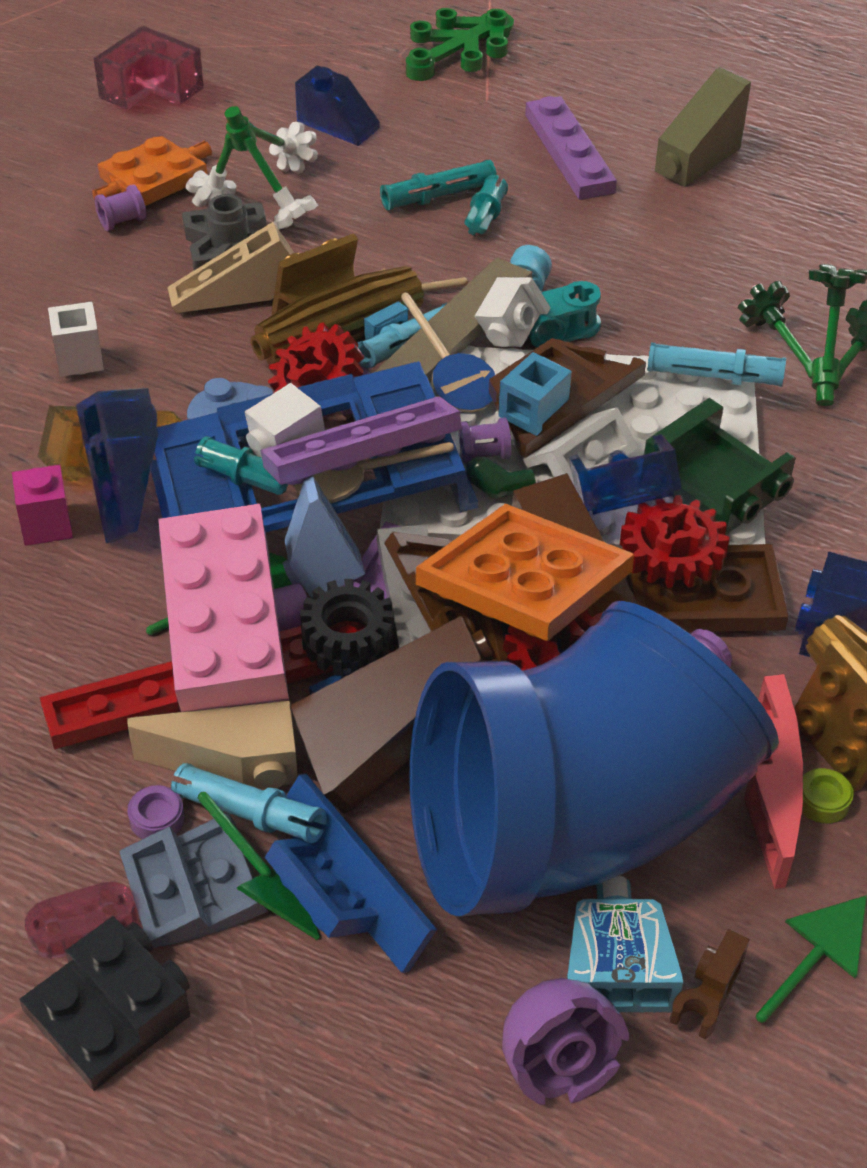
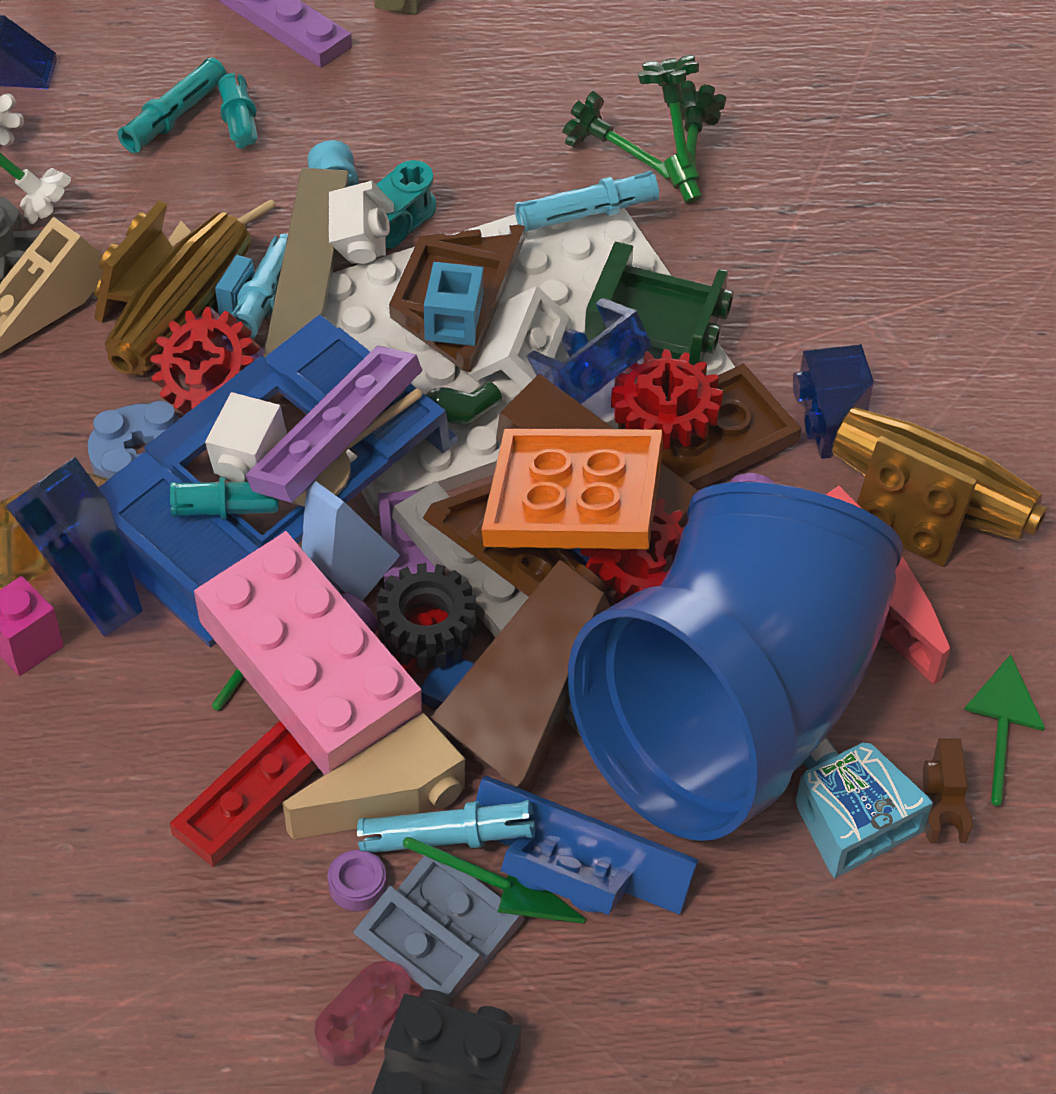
camera: 30 degrees left, 5 degrees up
(457, 377) = (353, 308): blue piece -> none
(499, 447) = (437, 366): medium lavender bush -> none
(562, 1040) = (862, 900): medium lavender cylinder -> none
(826, 795) = (933, 576): lime tile -> none

